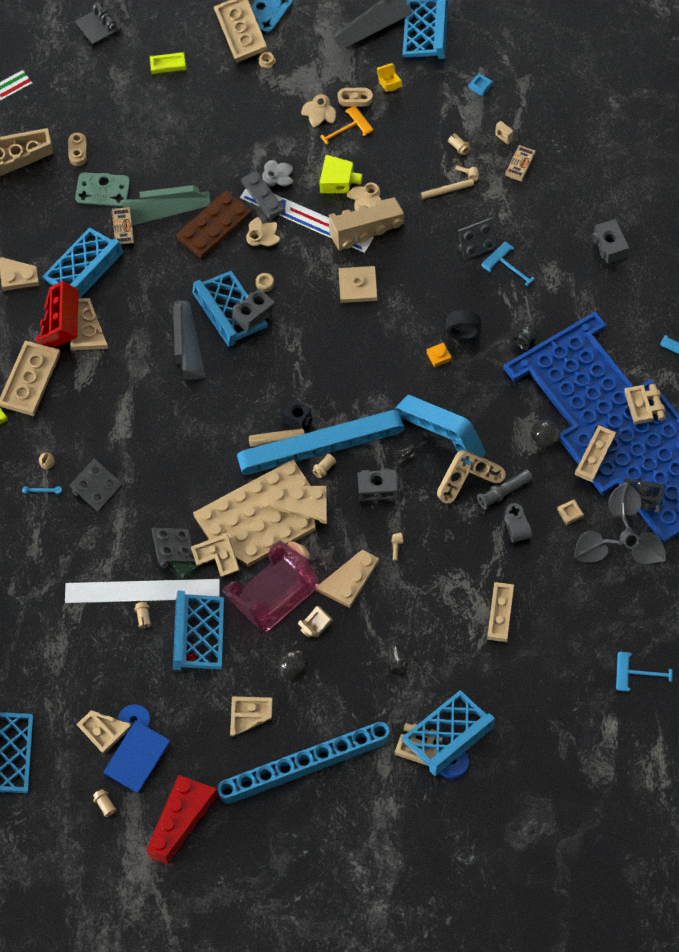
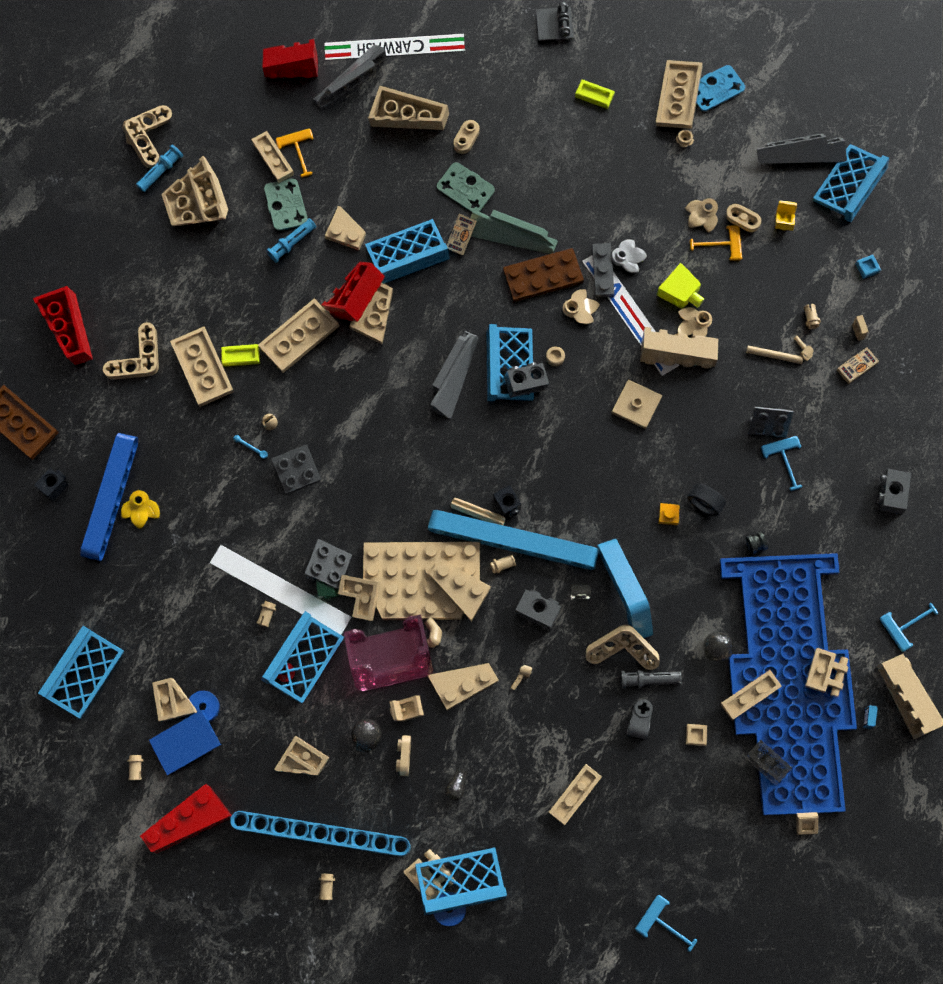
camera: 30 degrees right, 10 degrees up
(335, 802) = (326, 886): none -> tan pin
(340, 667) = (404, 746): none -> tan plate
(645, 548) = (743, 813): dark grey plant -> none

